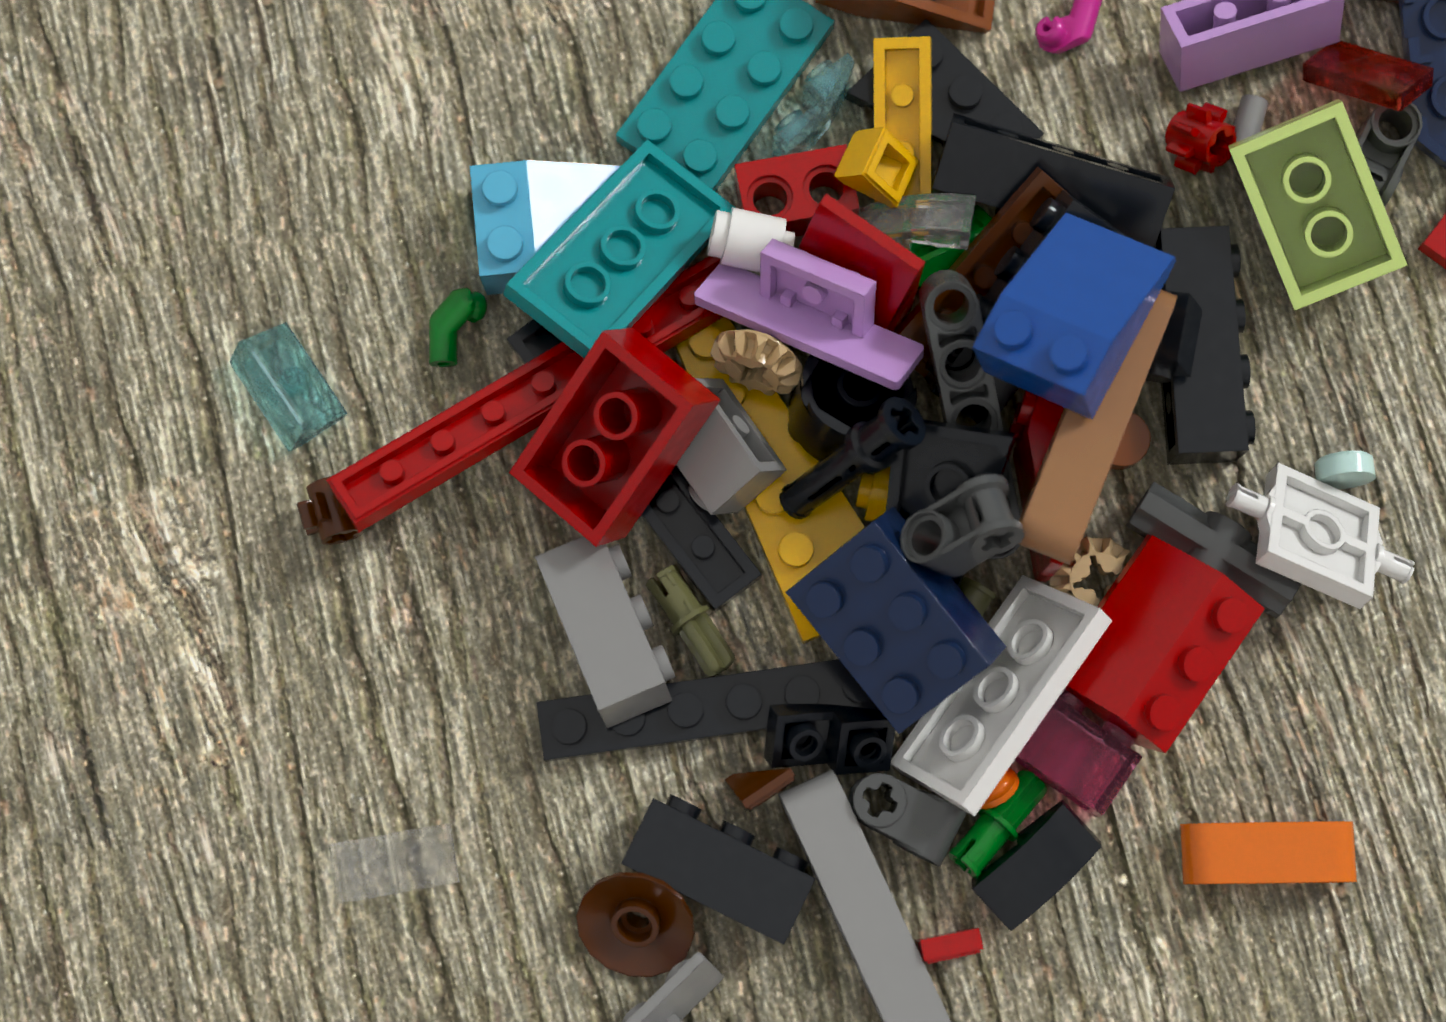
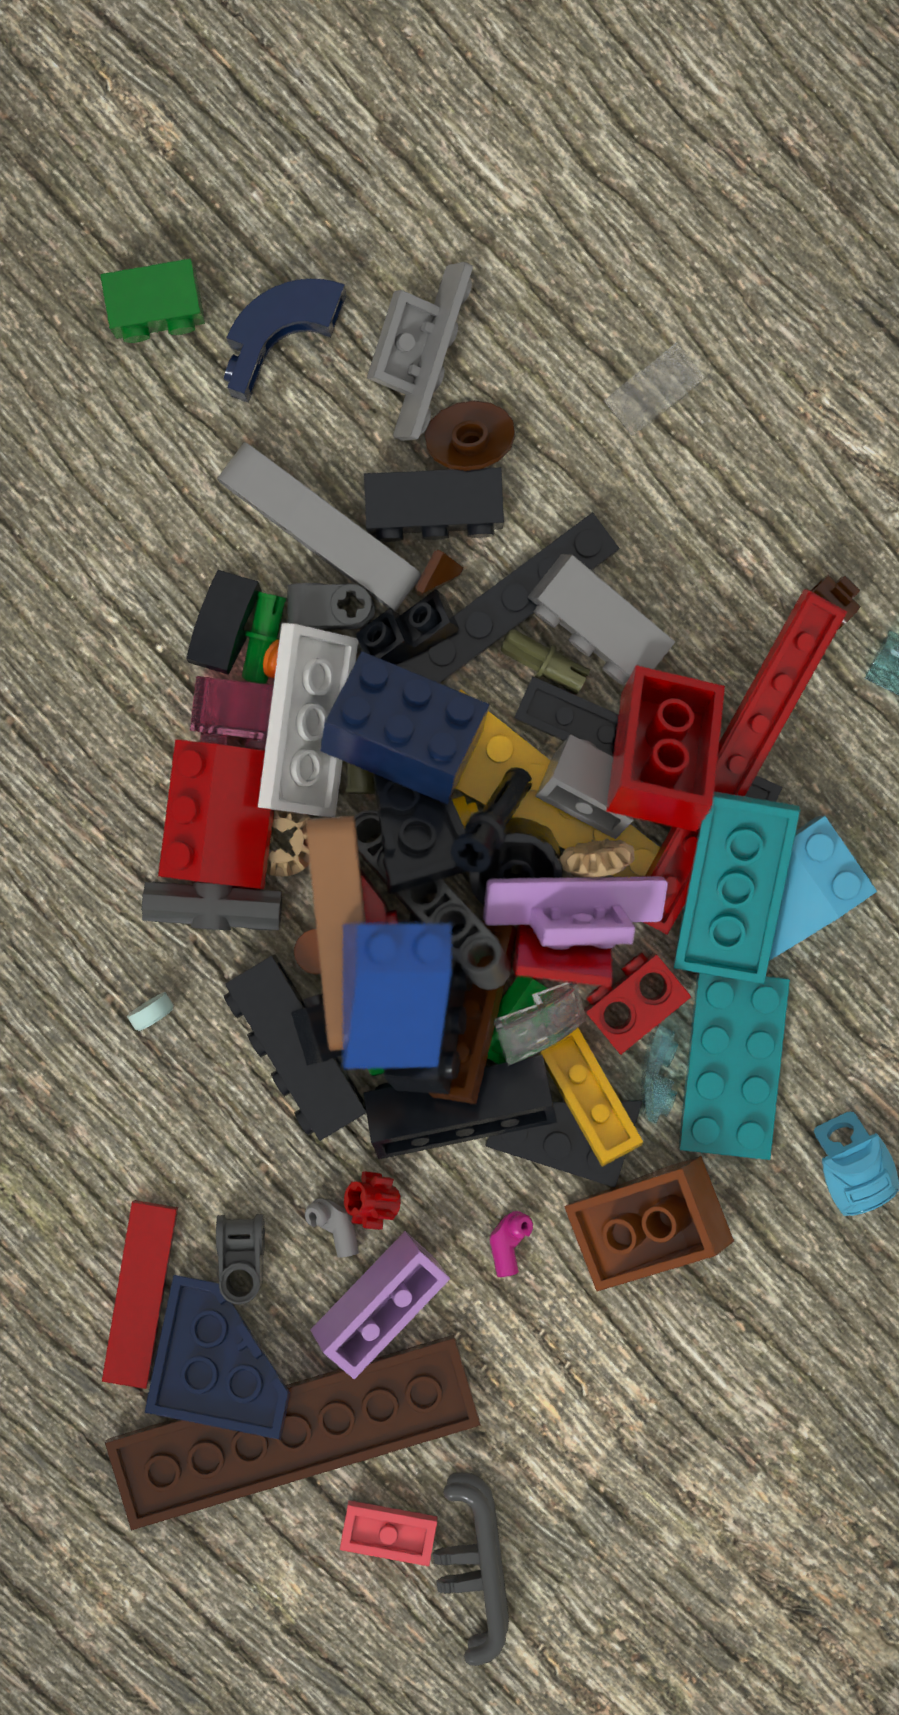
camera: 150 degrees right, 10 degrees up
(447, 320) = (831, 781): green arm -> none
(741, 236) = (653, 943): white brick -> none
(877, 166) = (589, 1049): yellow slope -> none
(950, 945) = (254, 536): red tile -> none
(963, 527) = (392, 804): dark grey piece -> none
(1268, 852) = (72, 715): orange beam -> none
(1317, 204) = (266, 1186): yellowish green brick -> none
(1319, 535) = (146, 951): white plate -> none
(1368, 75) = (277, 1310): clear red tile -> none

